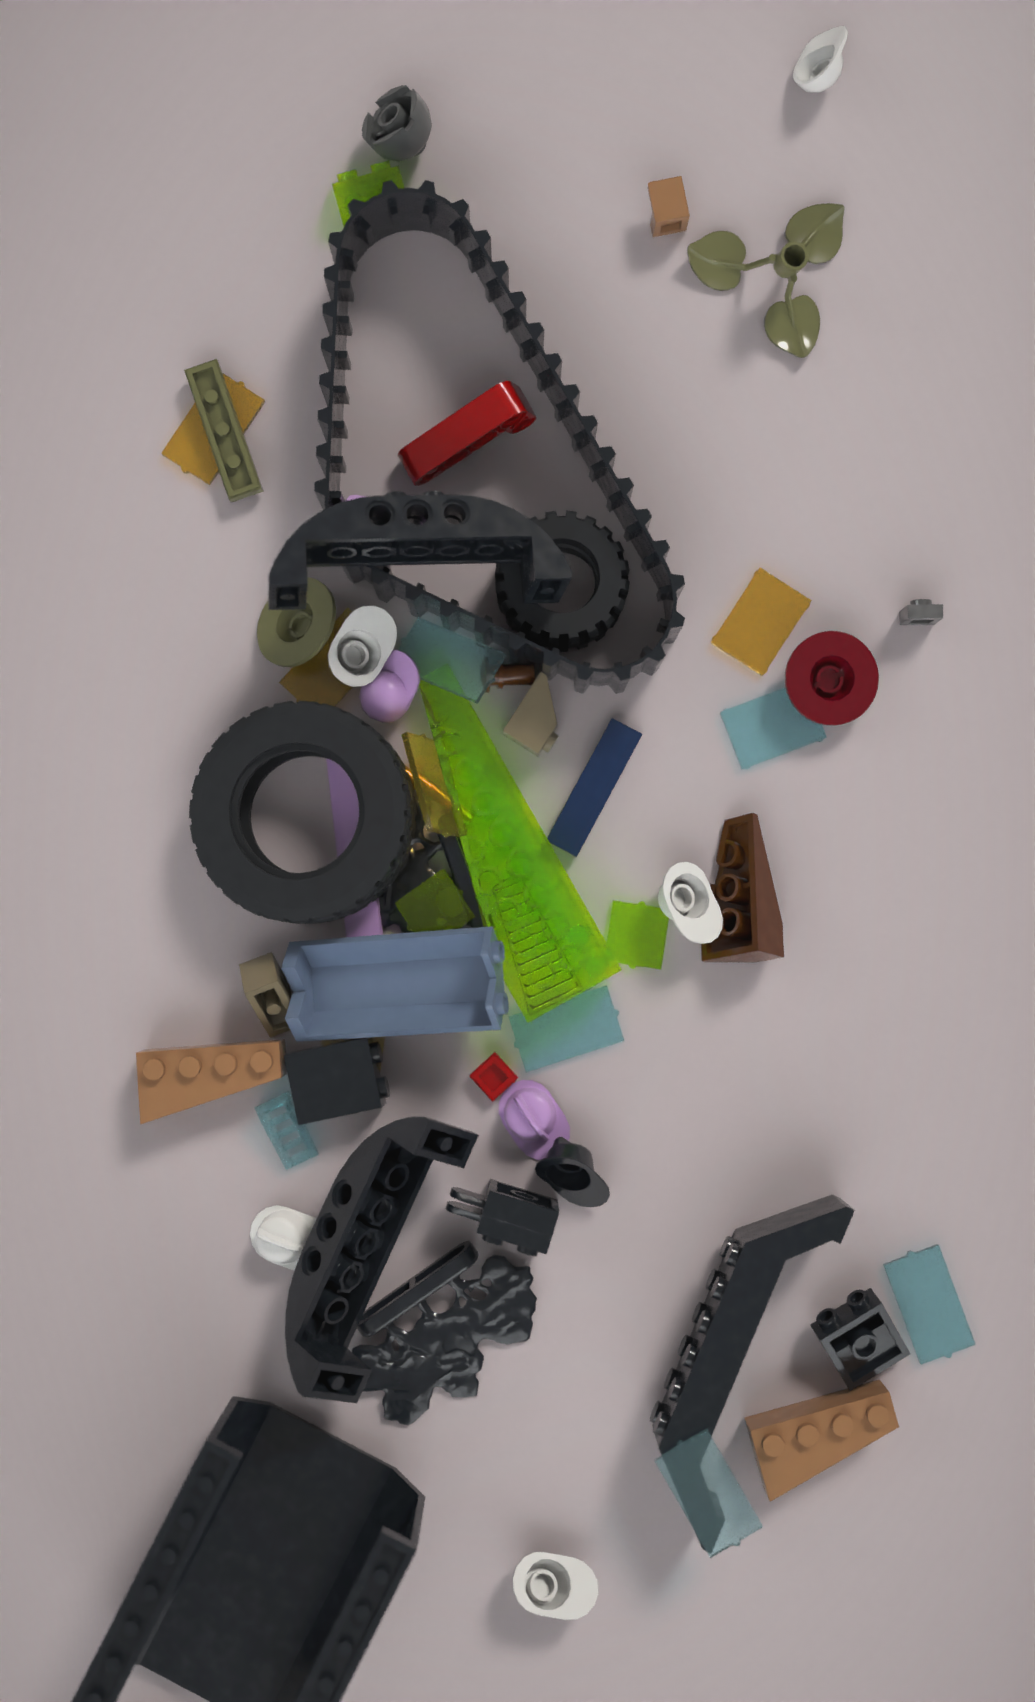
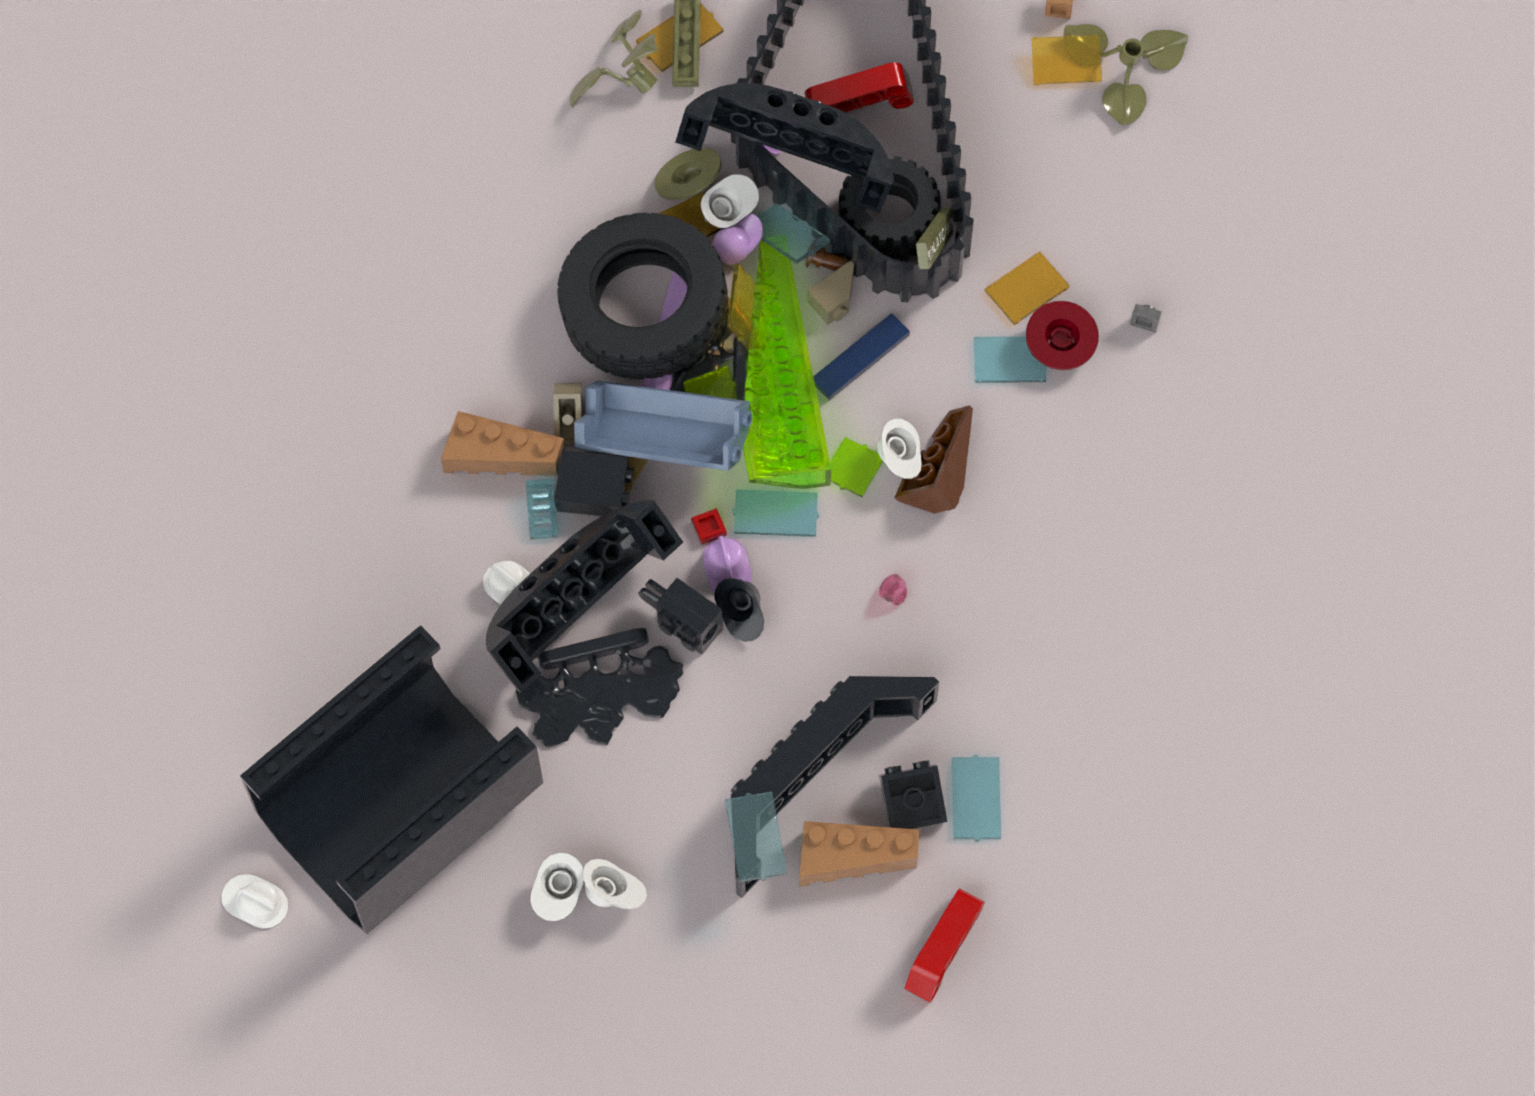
camera: 20 degrees right, 20 degrees down
(174, 497) = (637, 73): none -> olive plant
(490, 1616) = (557, 887): none -> white piece
(643, 620) = (935, 238): none -> olive tile
(703, 291) = (1066, 59): none -> clear yellow piece
(742, 1081) = (893, 589): none -> clear pink tile
(965, 1510) = (943, 945): none -> red beam

